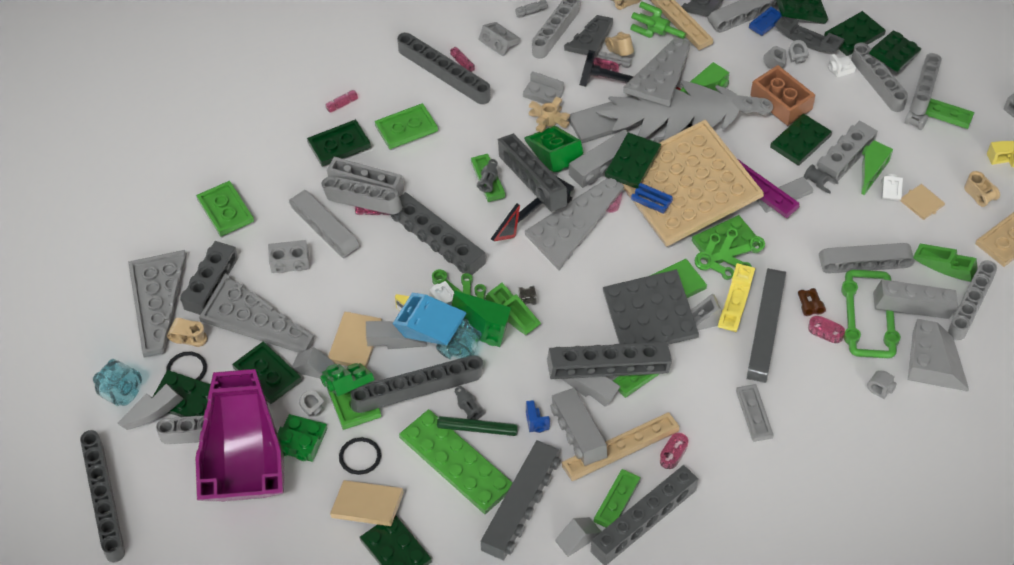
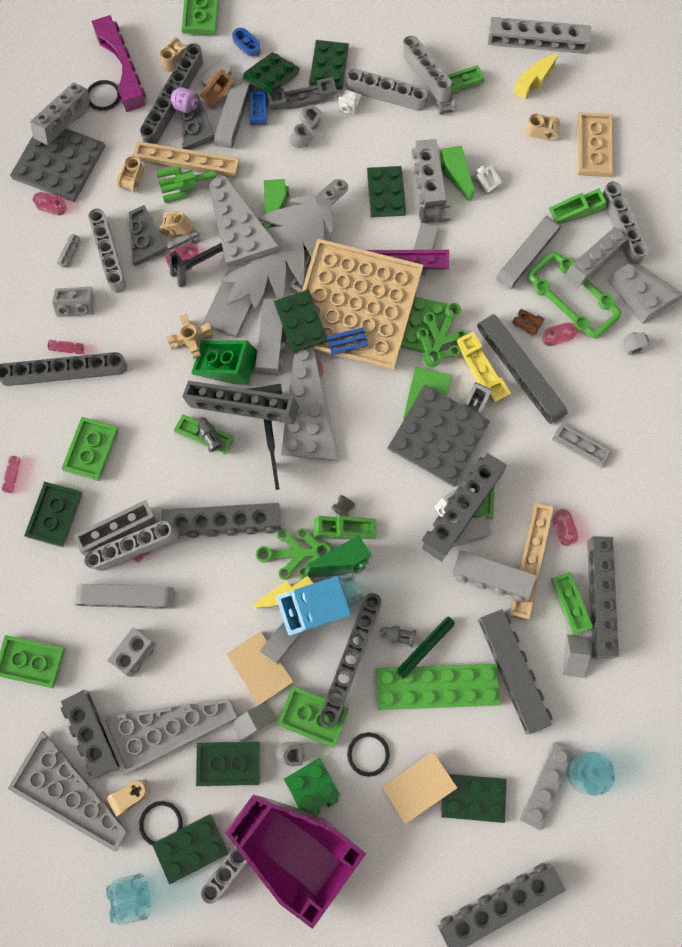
camera: 50 degrees left, 20 degrees up
(151, 408) = (181, 889): light grey slope -> none
(344, 380) = (303, 712): green plate -> none
(442, 292) = (285, 568): white bracket -> none
(535, 422) = (452, 599): blue bracket -> none
(543, 88) = (160, 317): light grey bracket -> none
(786, 93) = (340, 162): nougat brick -> none
(895, 51) = (377, 57): dark green plate -> none
(922, 201) = (514, 170): tan piece -> none

